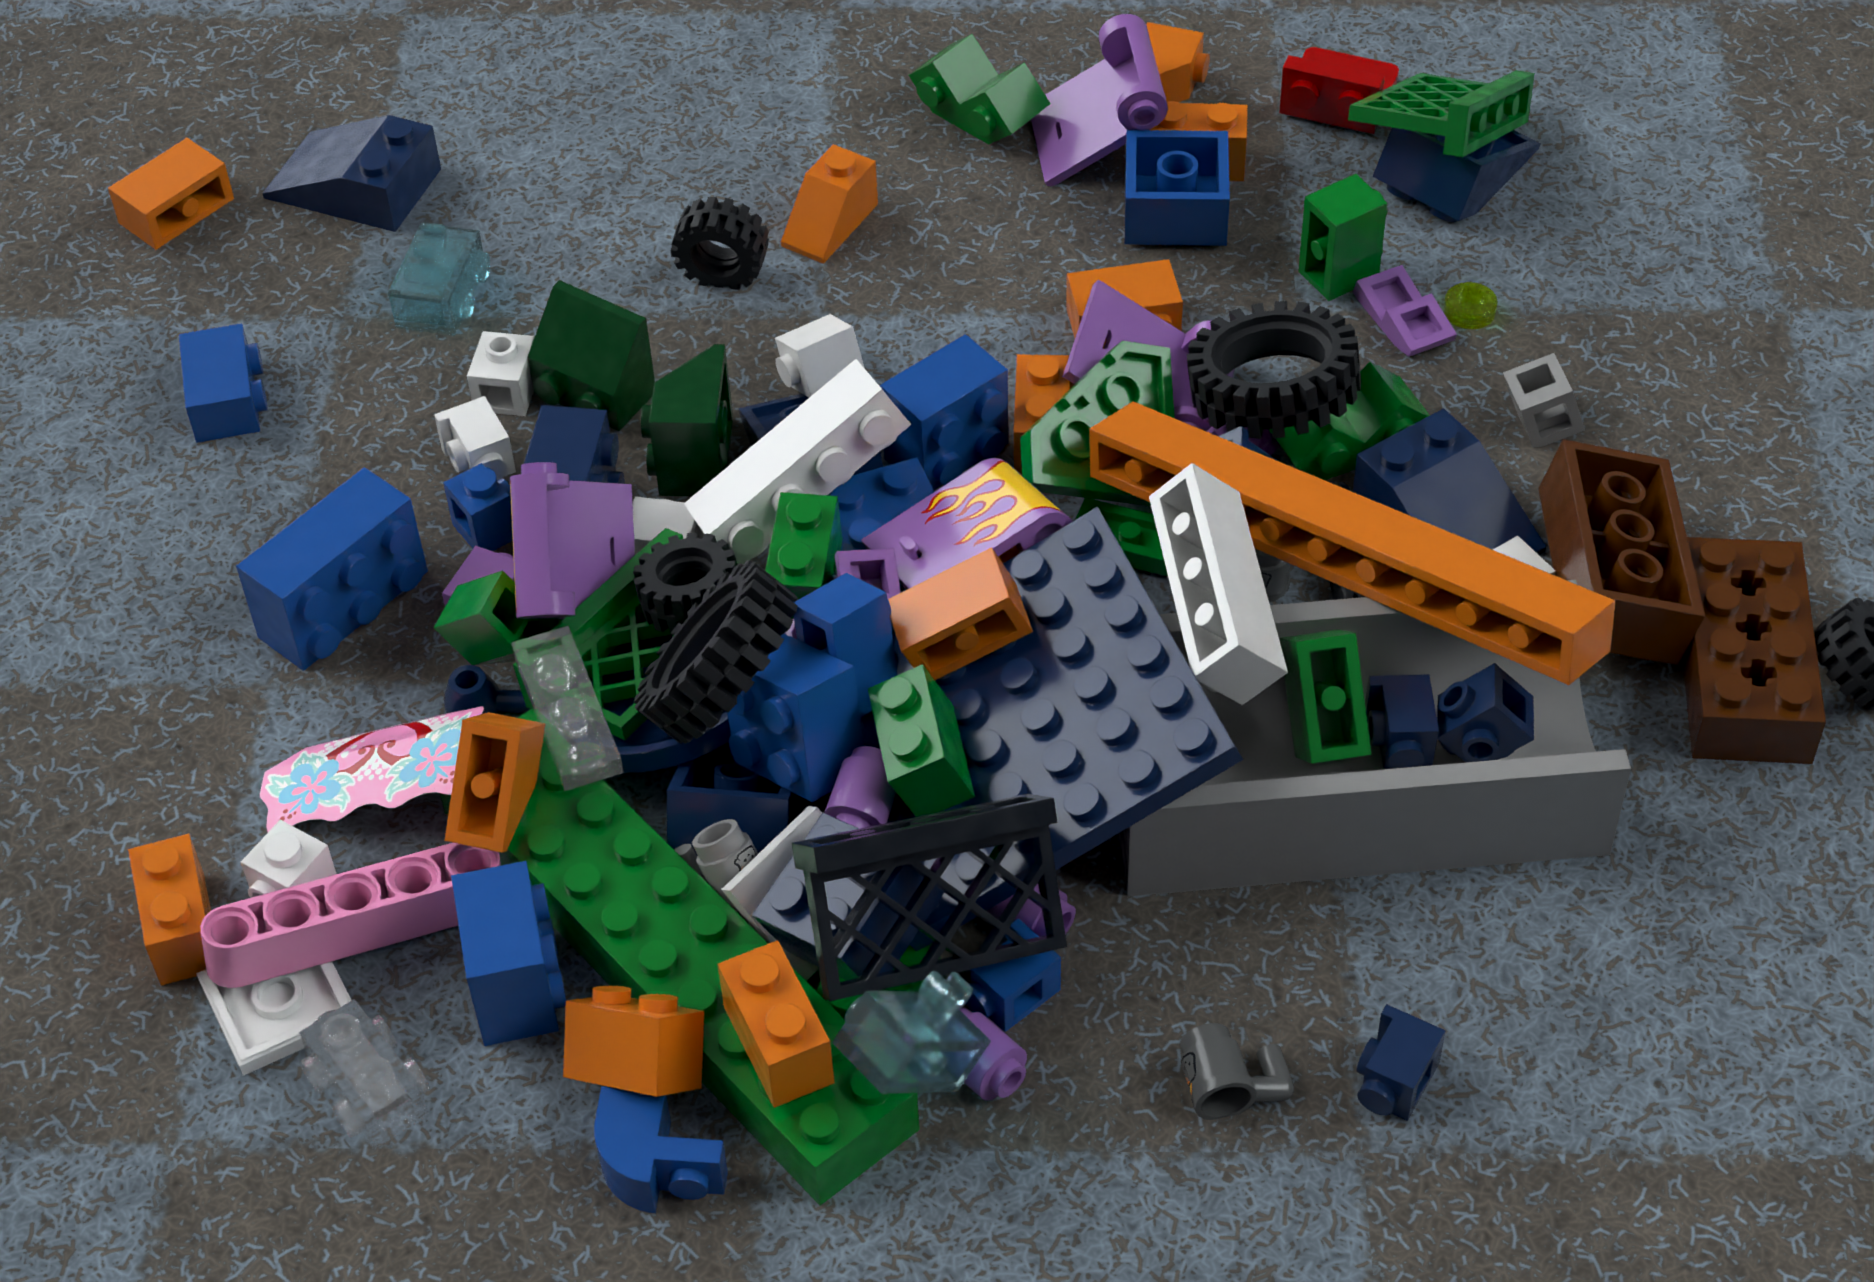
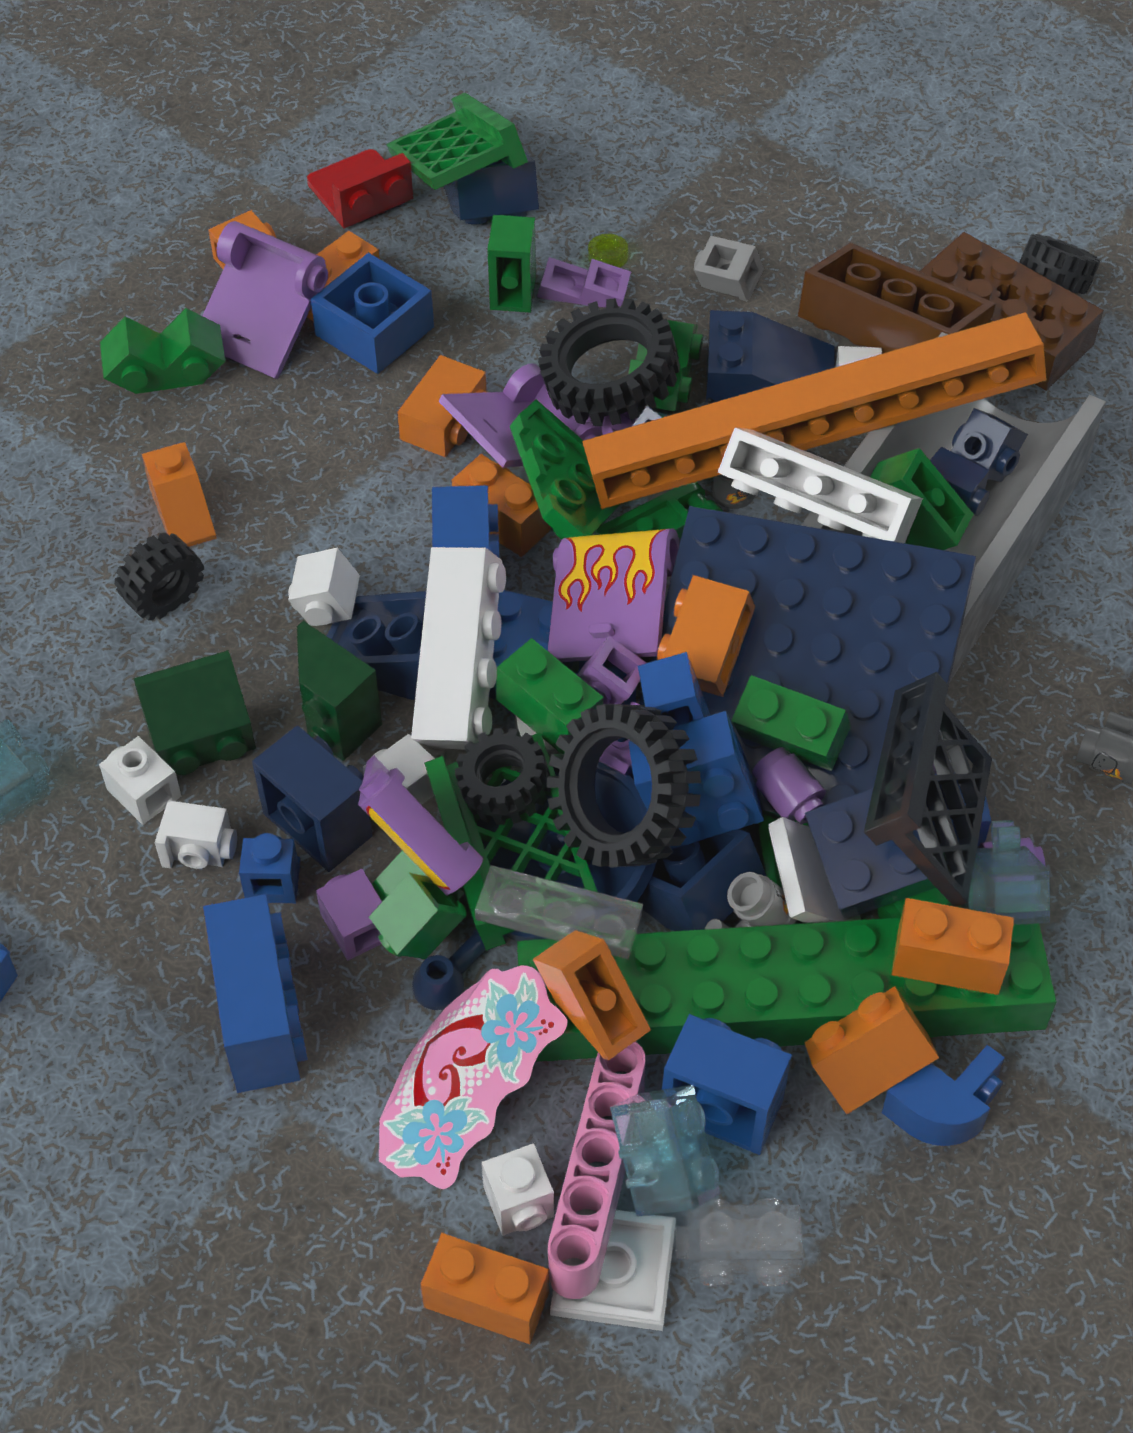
camera: 55 degrees left, 5 degrees up
(384, 940) = (665, 1151): none -> clear light blue brick

